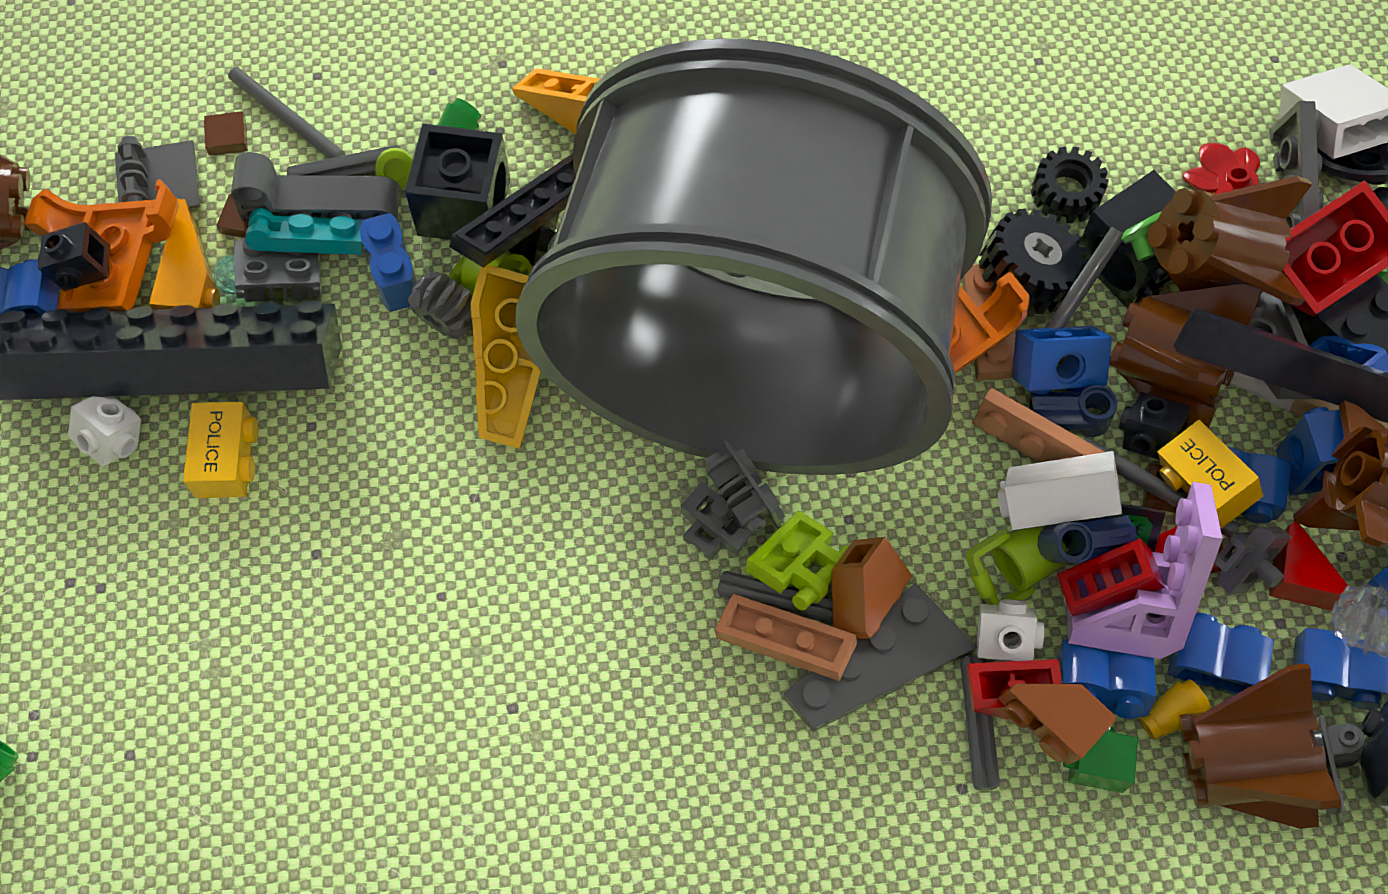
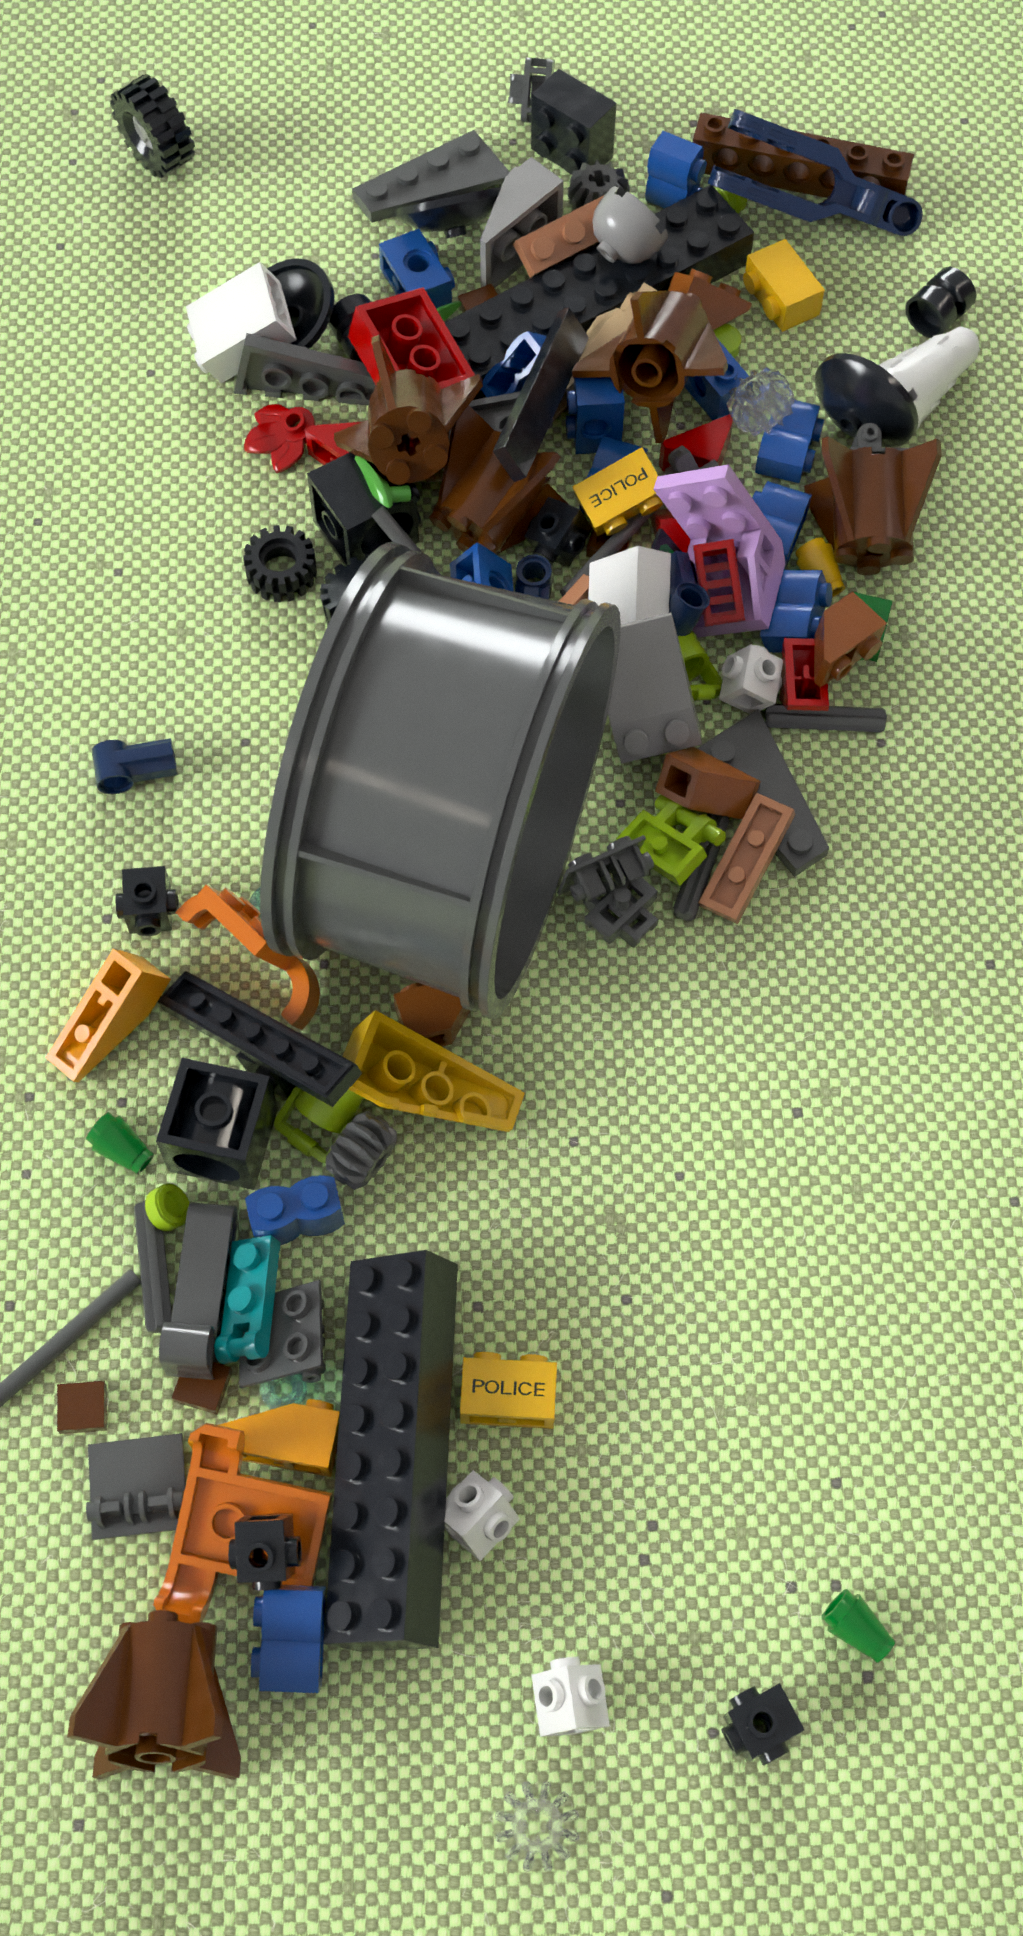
camera: 85 degrees left, 0 degrees up
(958, 512) = (651, 692): none -> light grey slope

